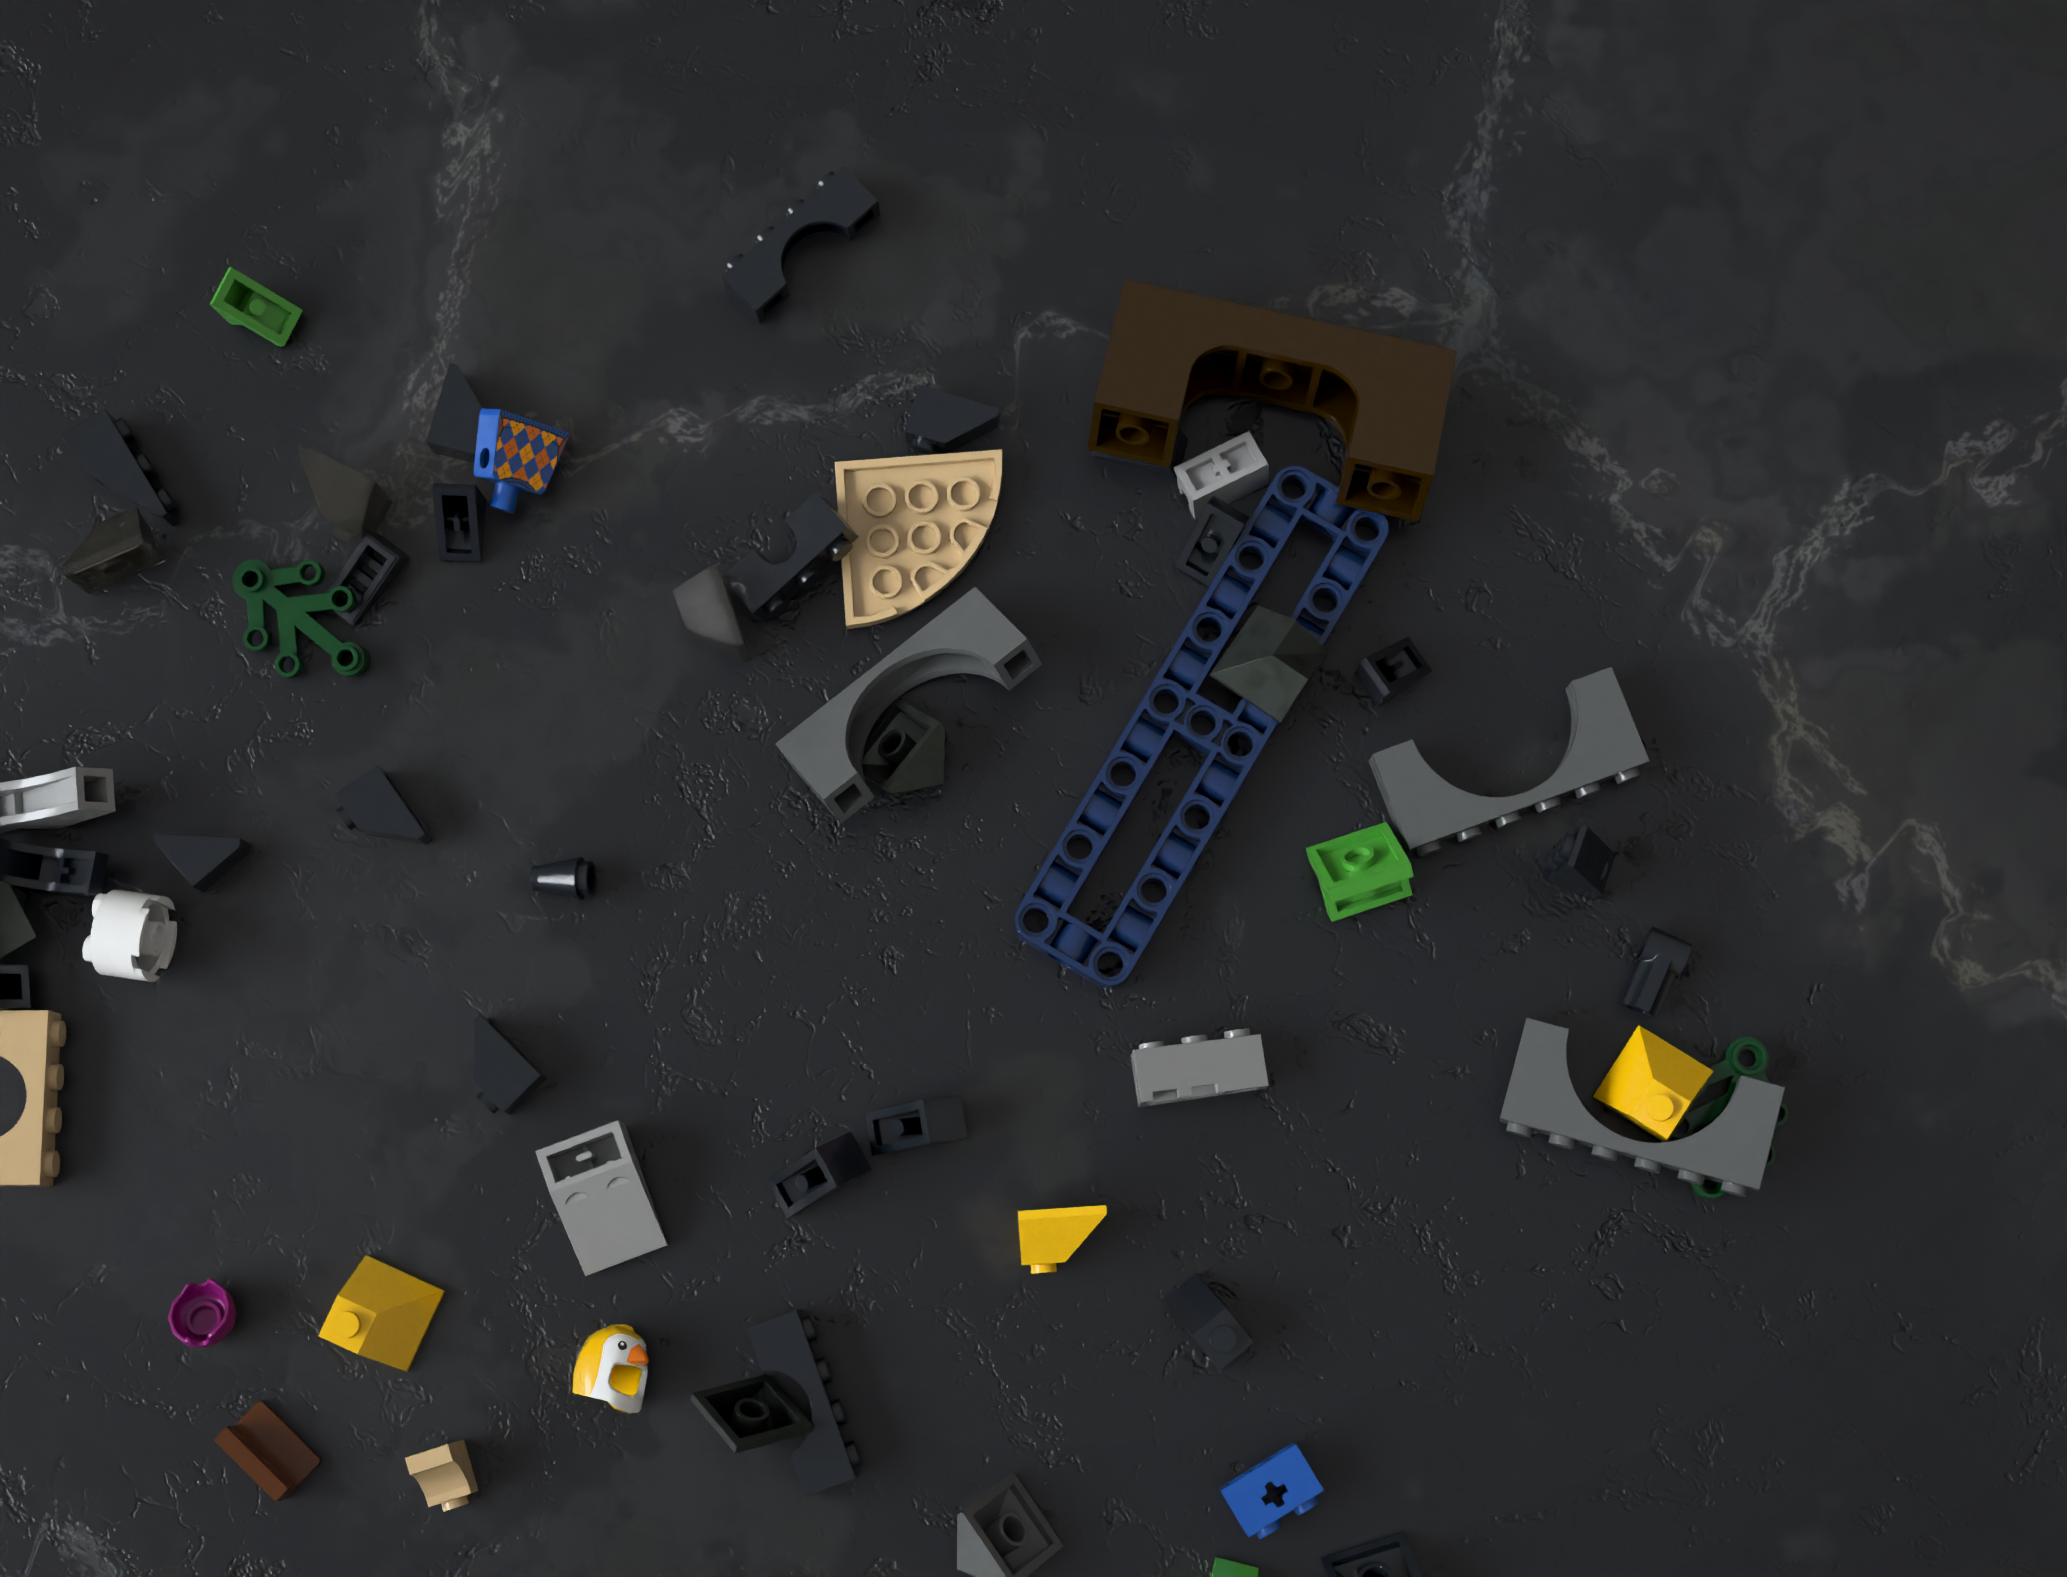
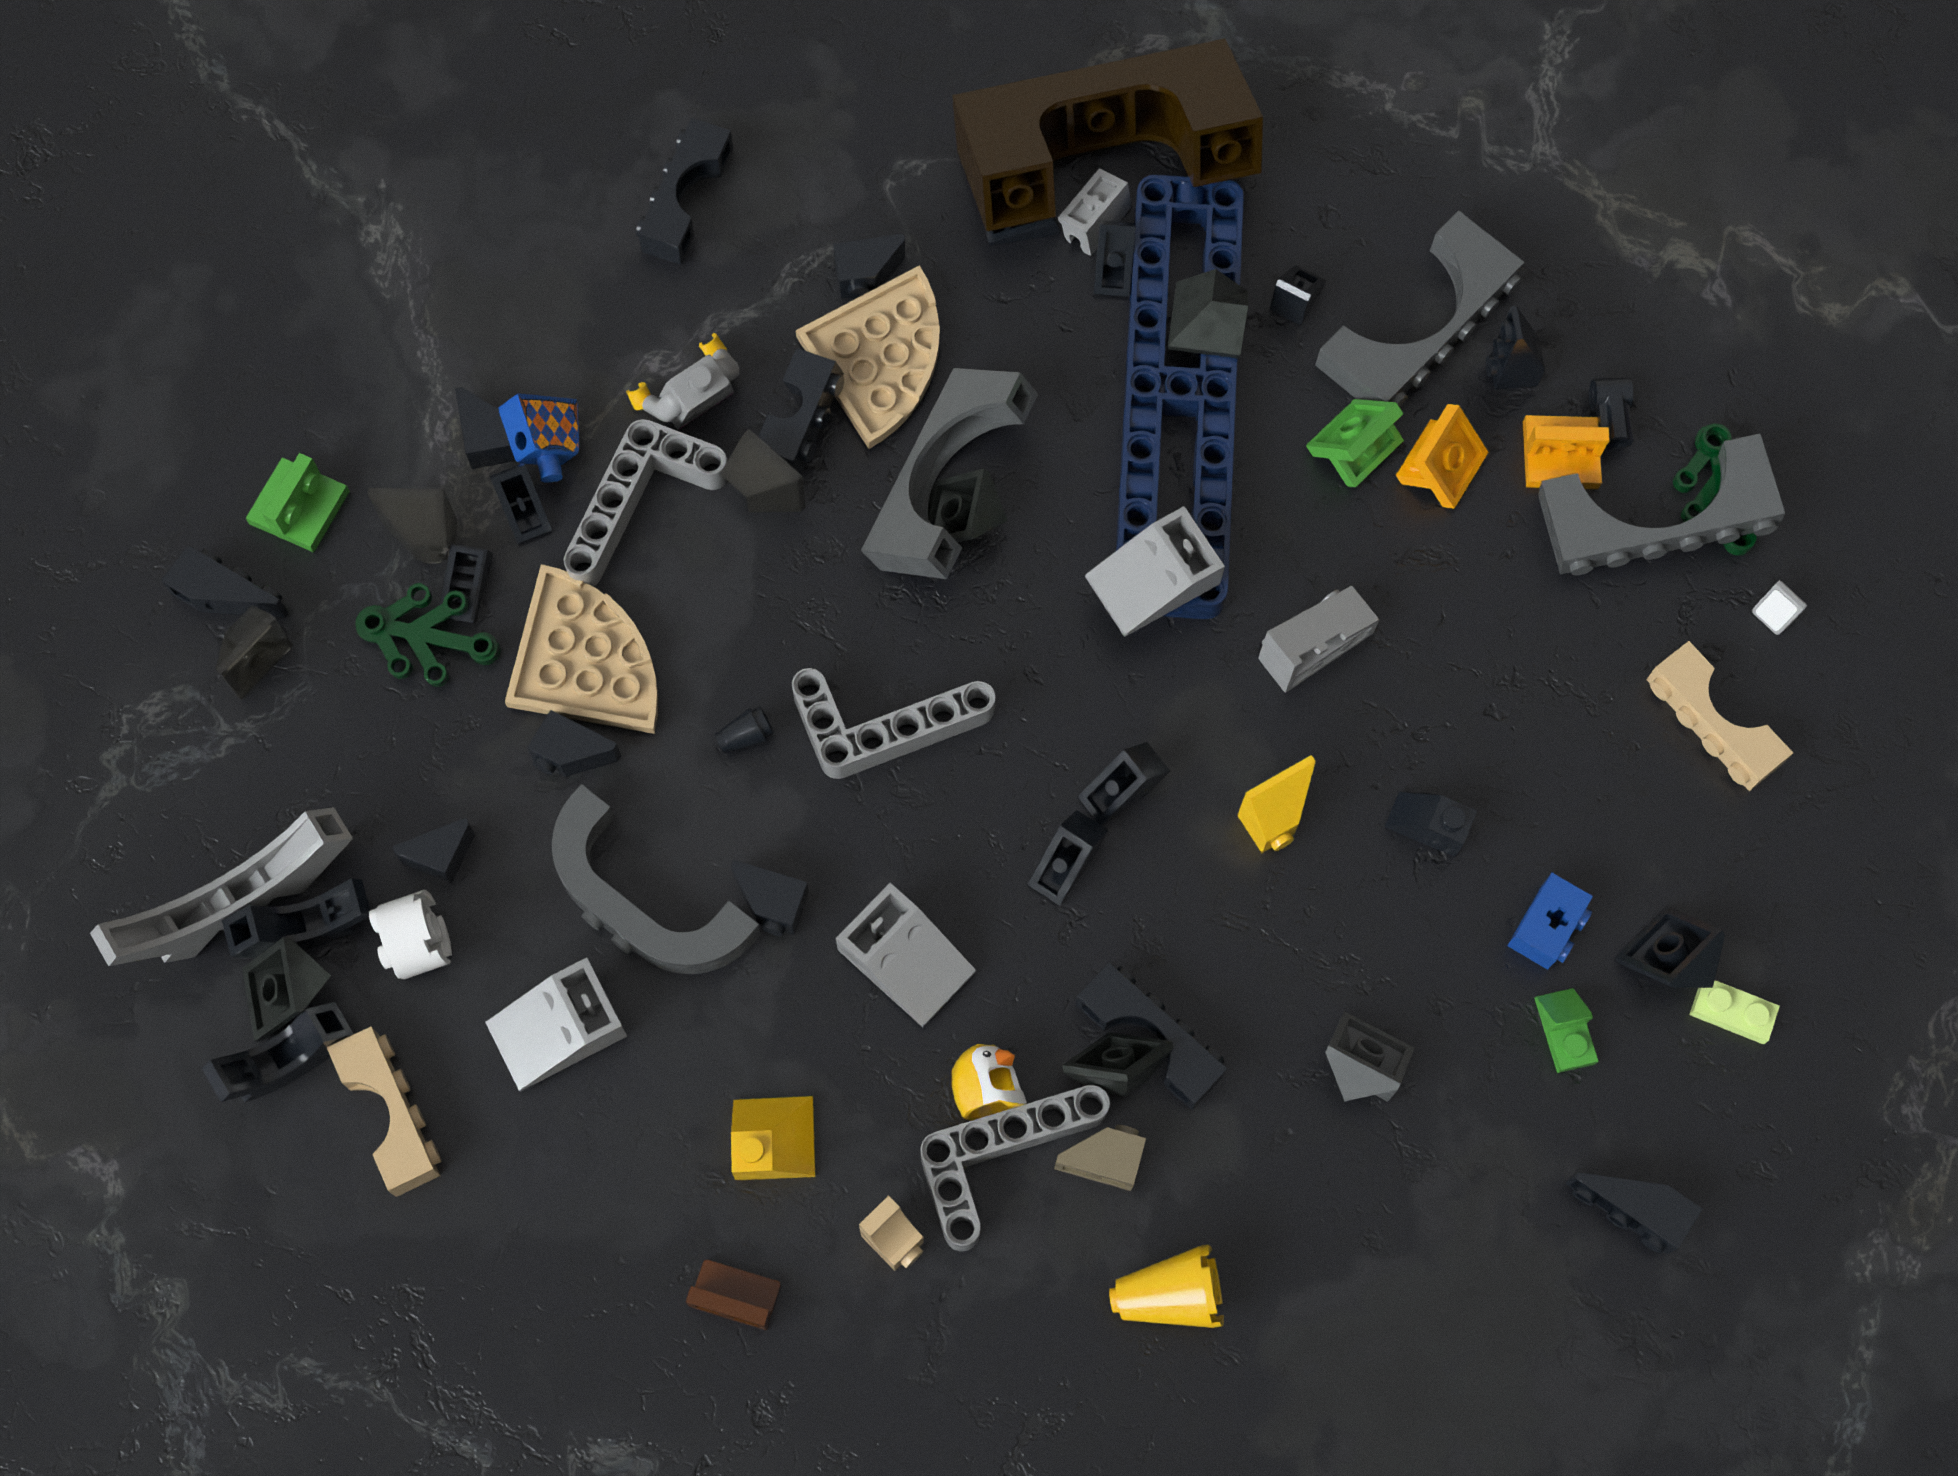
camera: 30 degrees left, 10 degrees down
(202, 1314) = (623, 1208): magenta hair -> none
(230, 1095) = (555, 1025): none -> slope
(239, 409) = (298, 503): none -> bright green bracket
(255, 307) = (270, 417): bright green slope -> none
(335, 997) = (693, 952): none -> dark grey arch
(442, 718) = (583, 658): none -> tan plate
(576, 561) = (630, 489): none -> light grey beam
(595, 1434) = (998, 1145): none -> light grey beam
(694, 1502) = (1105, 1157): none -> dark tan slope
(697, 480) = (693, 389): none -> light grey torso
(706, 948) = (885, 727): none -> light grey beam
(1055, 925) = (1156, 572): none -> light grey slope
(1441, 938) = (1445, 457): none -> light orange bracket
(1557, 1308) = (1746, 752): none -> tan arch
(1577, 989) = (1563, 447): none -> light orange bracket
(1653, 1084) = (1658, 490): yellow slope -> none
(1706, 1278) = (1779, 608): none -> slope

